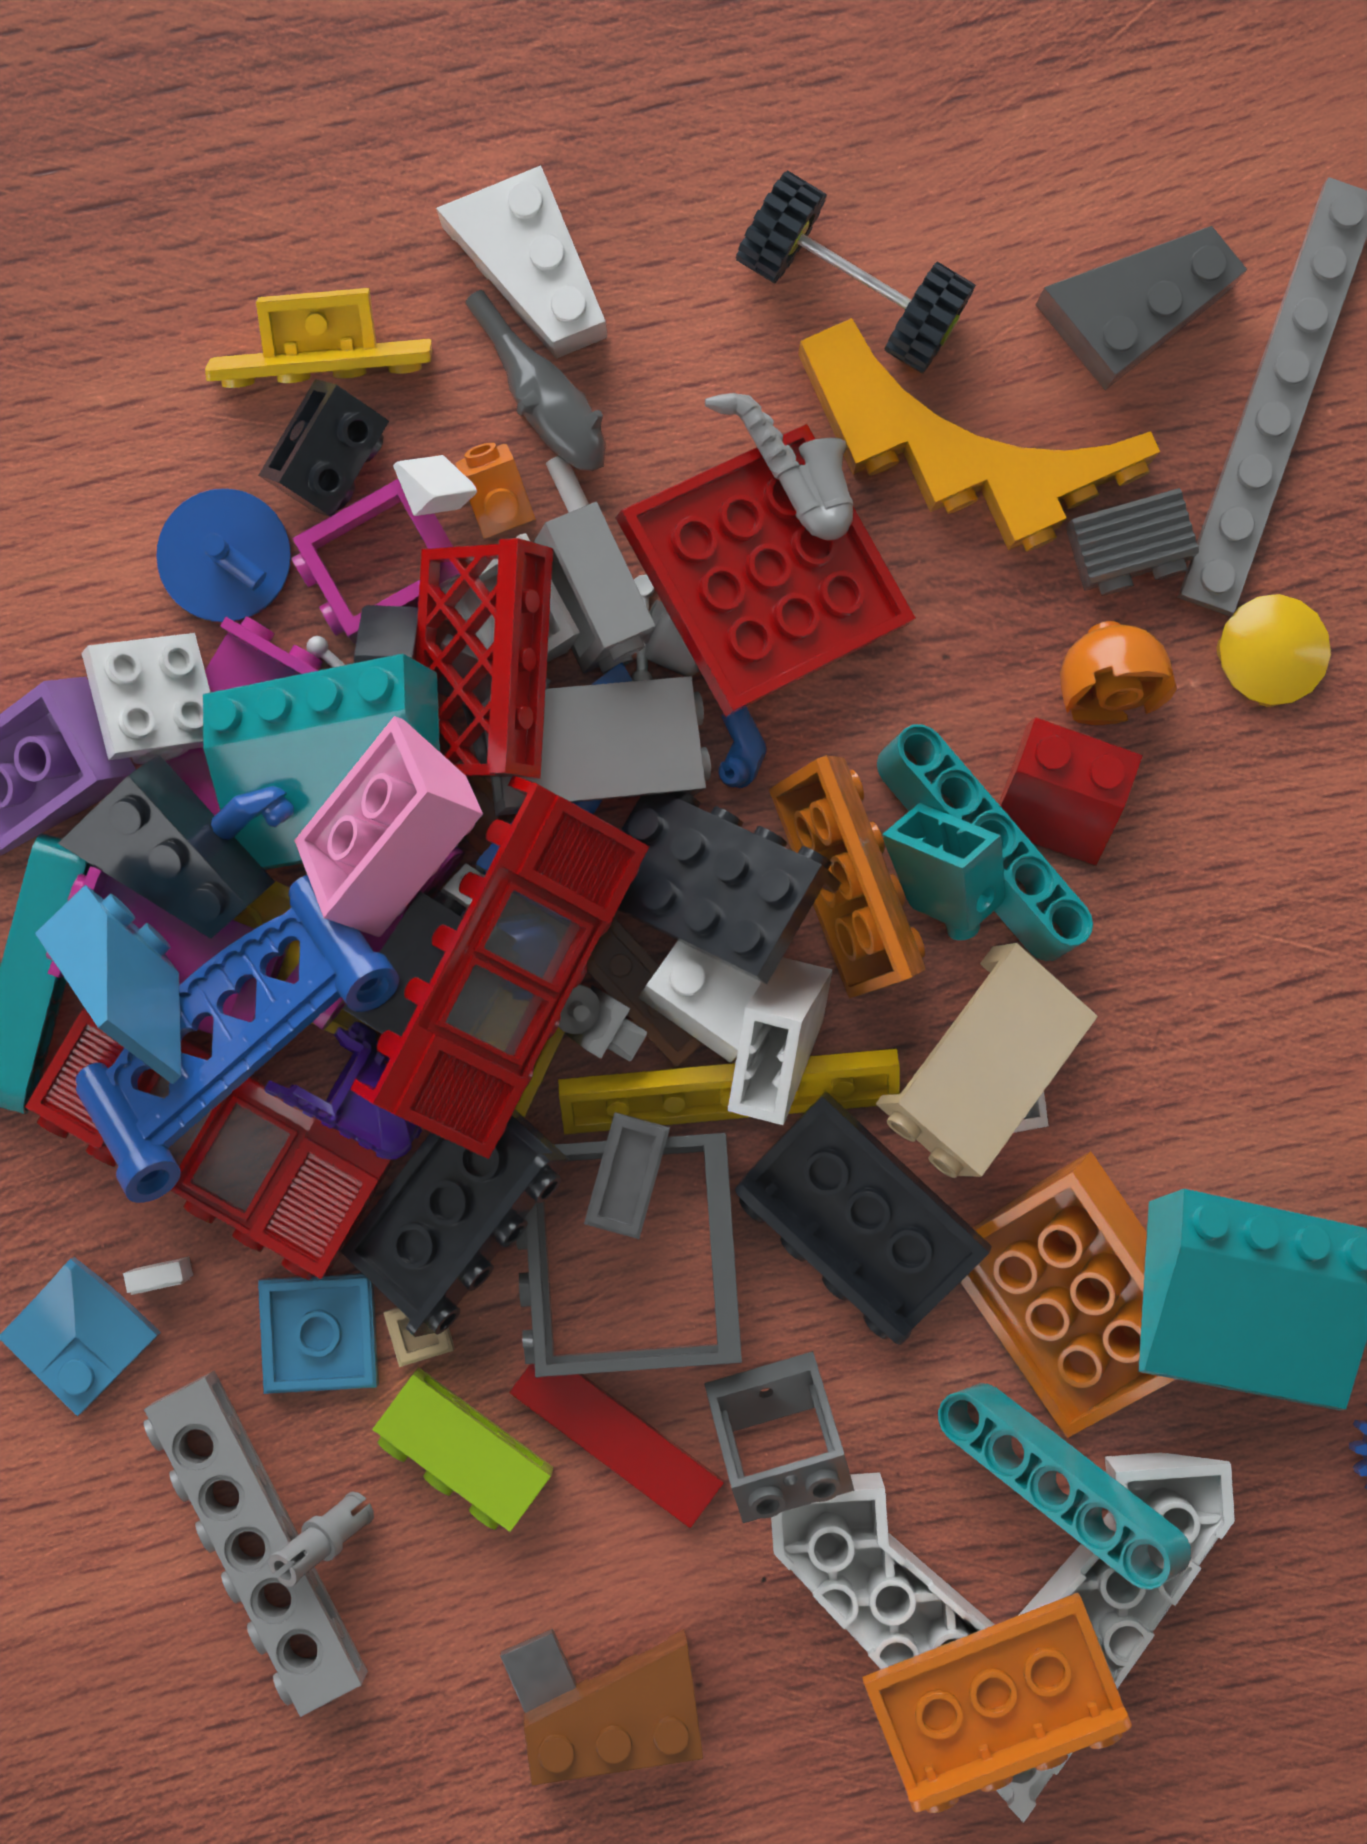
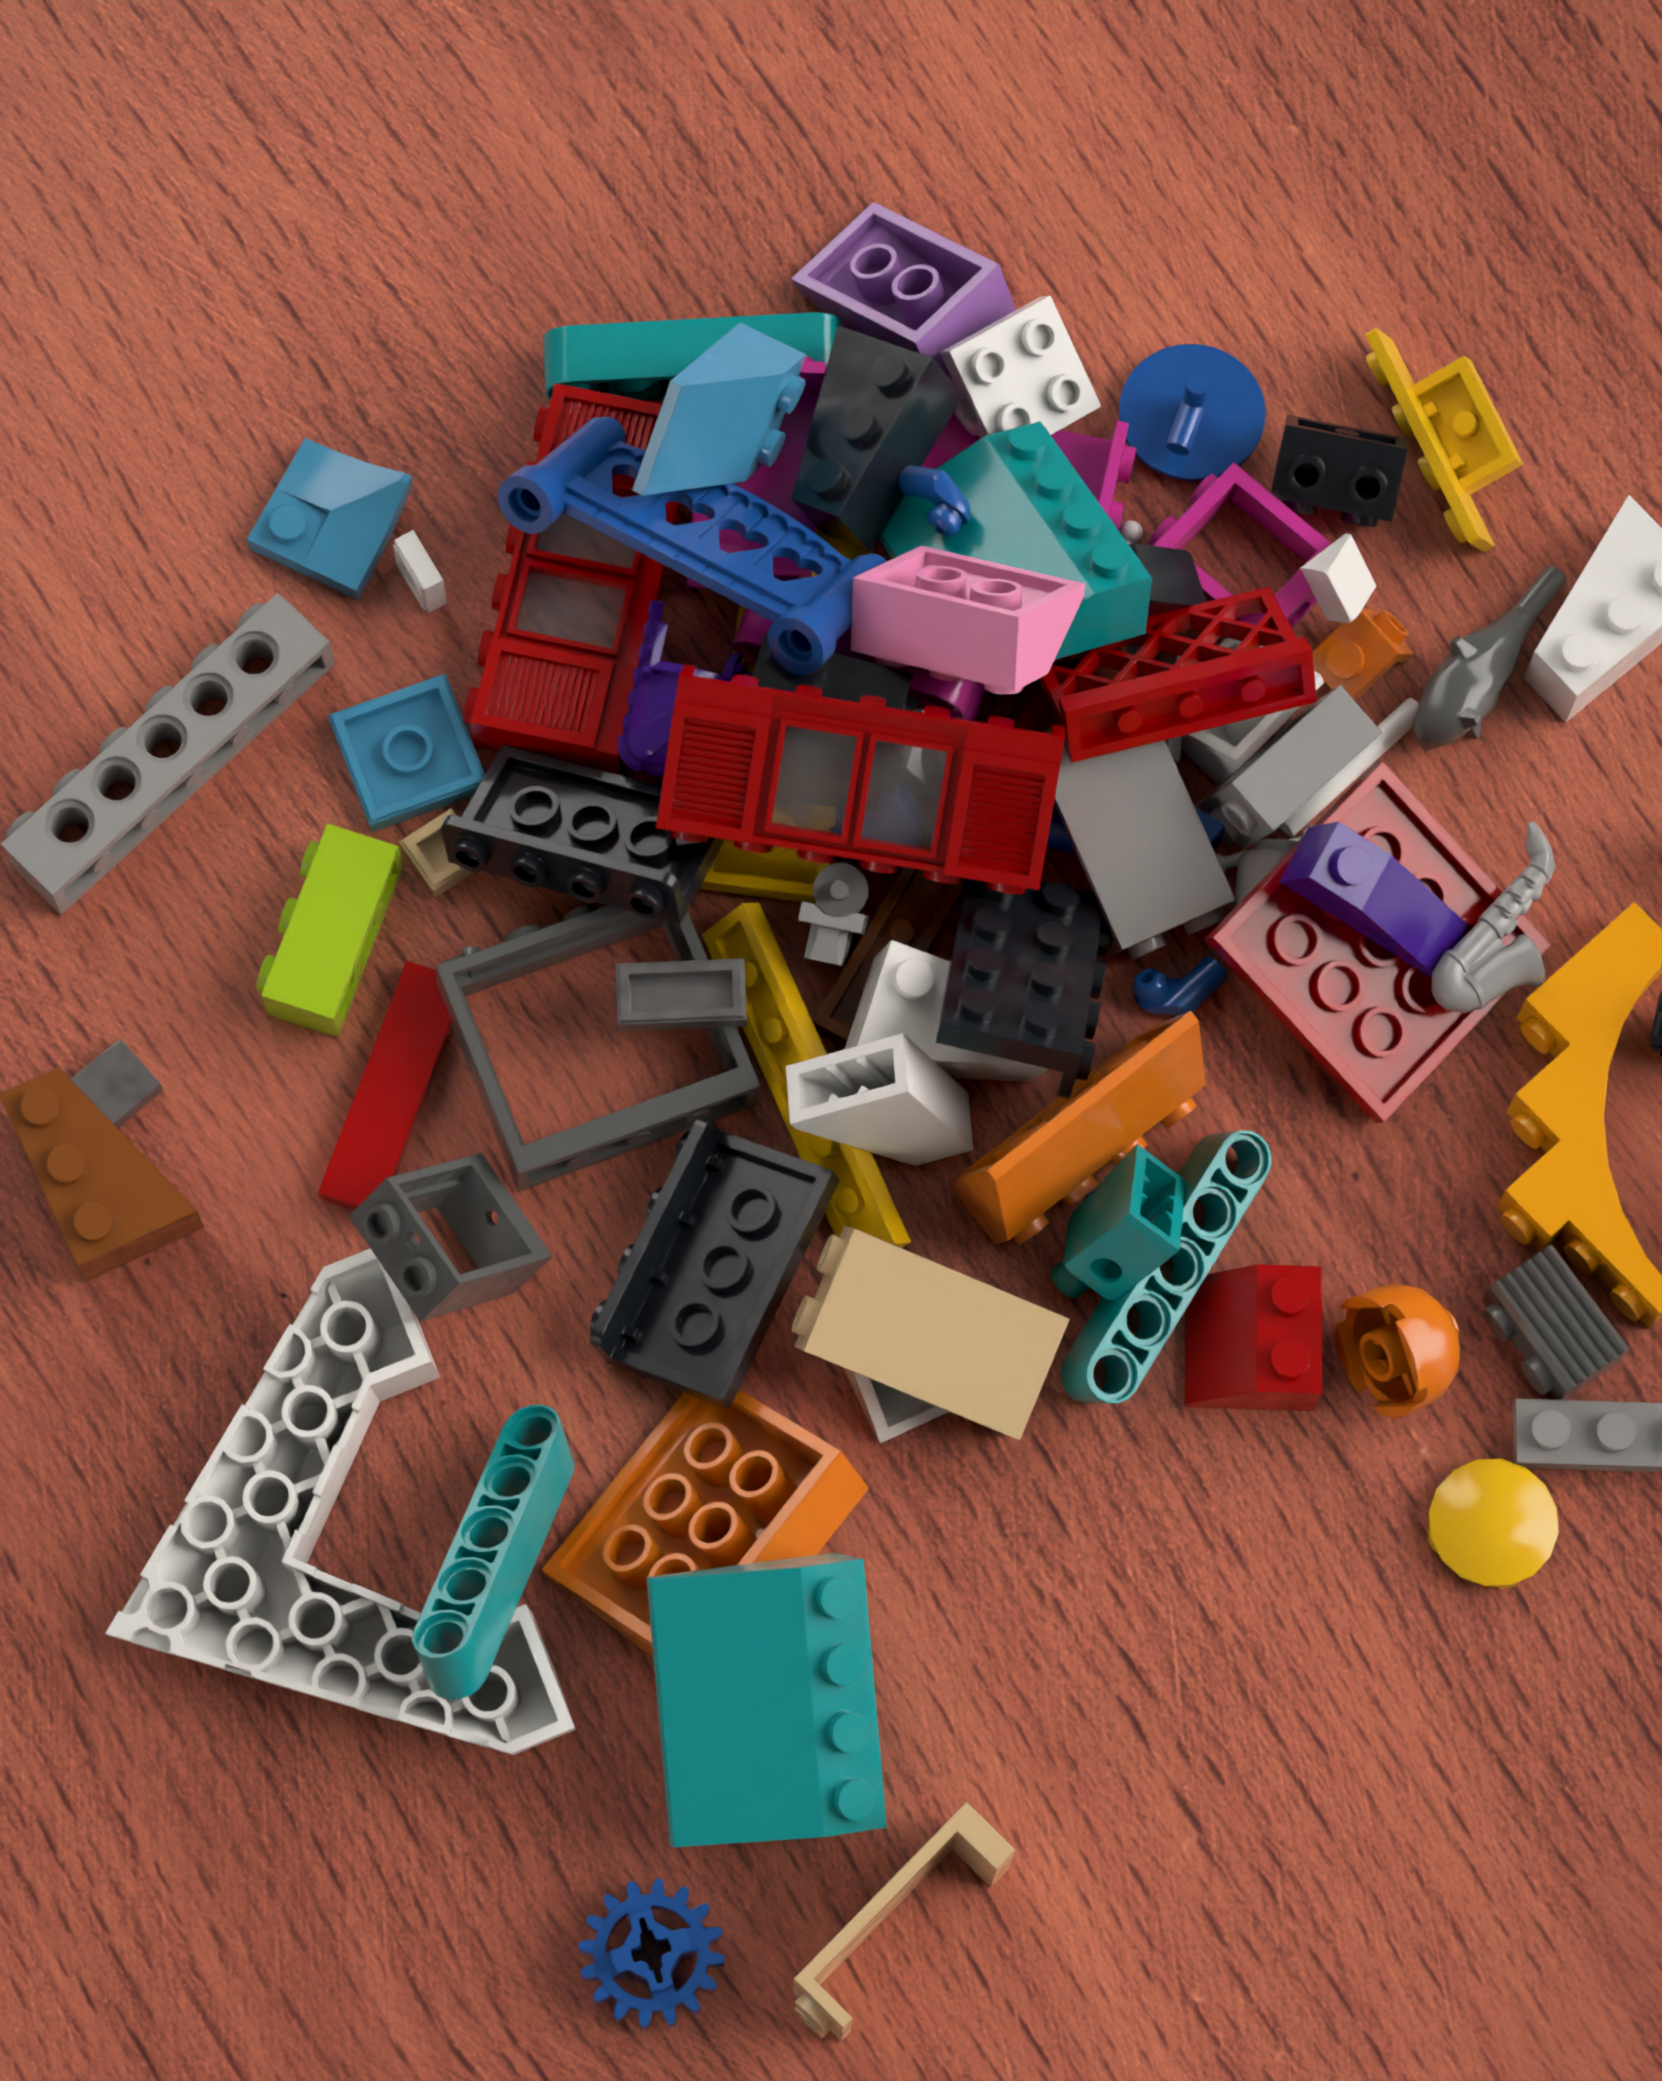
camera: 70 degrees right, 15 degrees down
(321, 1538) = (195, 809): light grey pin -> none
(736, 562) = (1373, 895): none -> dark purple slope
(997, 1704) = (235, 1548): orange bracket -> none

